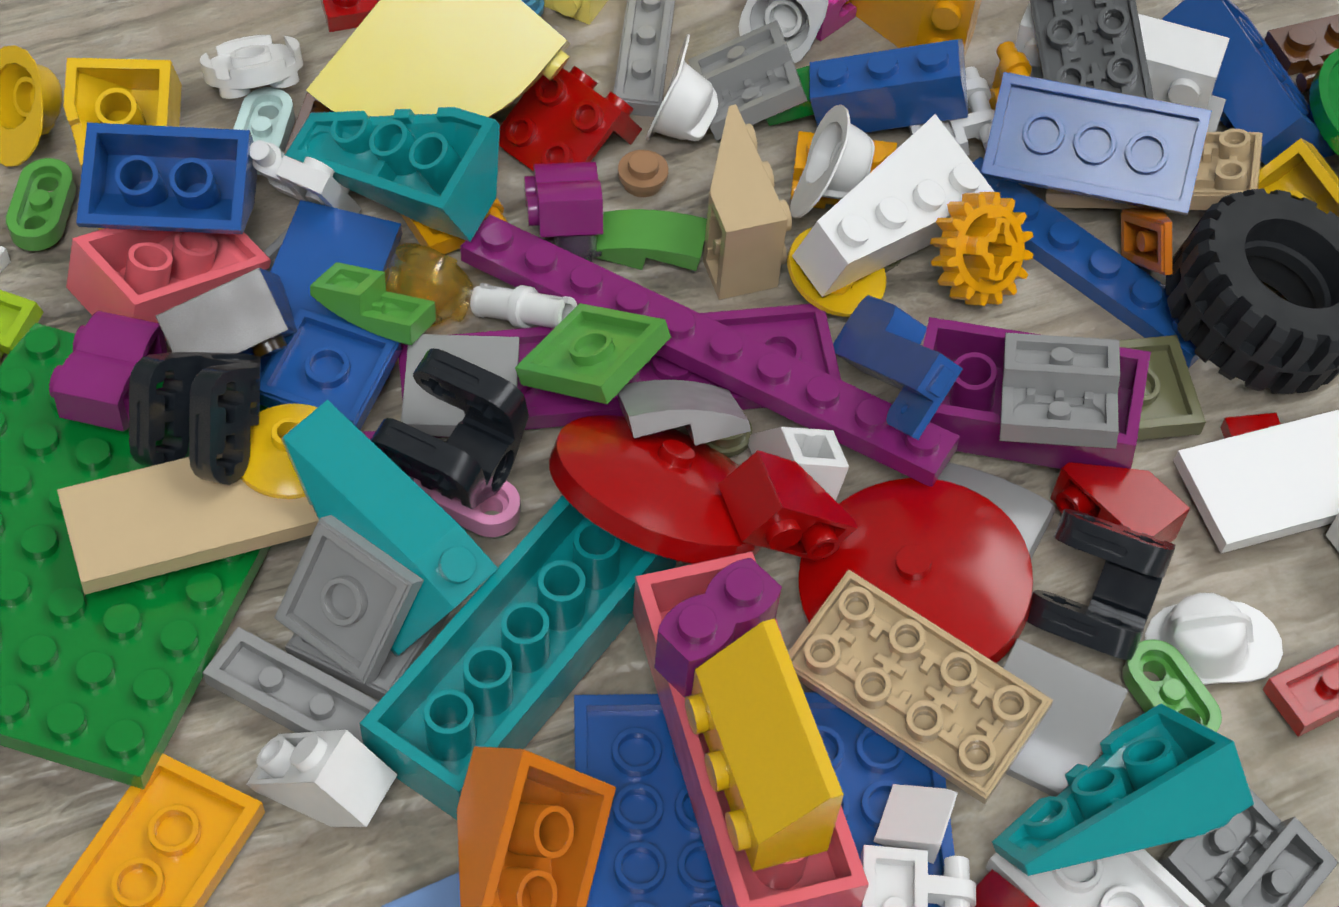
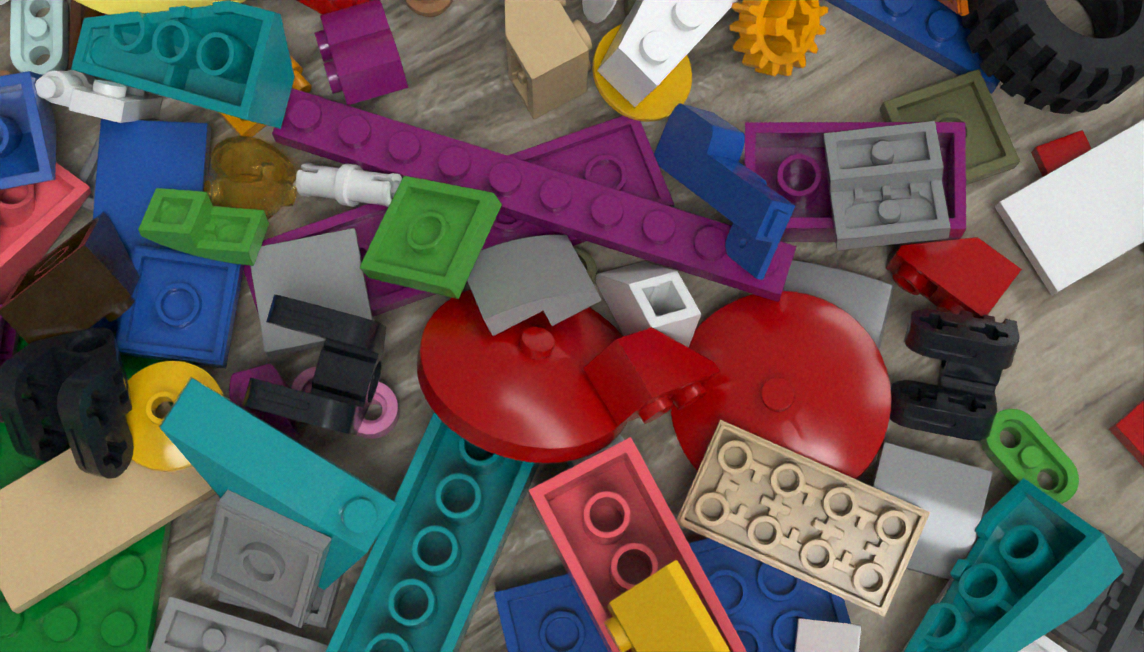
camera: 10 degrees left, 20 degrees up
(580, 245) = (388, 105): clear purple plate -> none
(652, 234) = (455, 68): bright green slope -> none
(709, 622) = (628, 529): magenta brick -> none
(1219, 638) = (1061, 385): white piece -> none

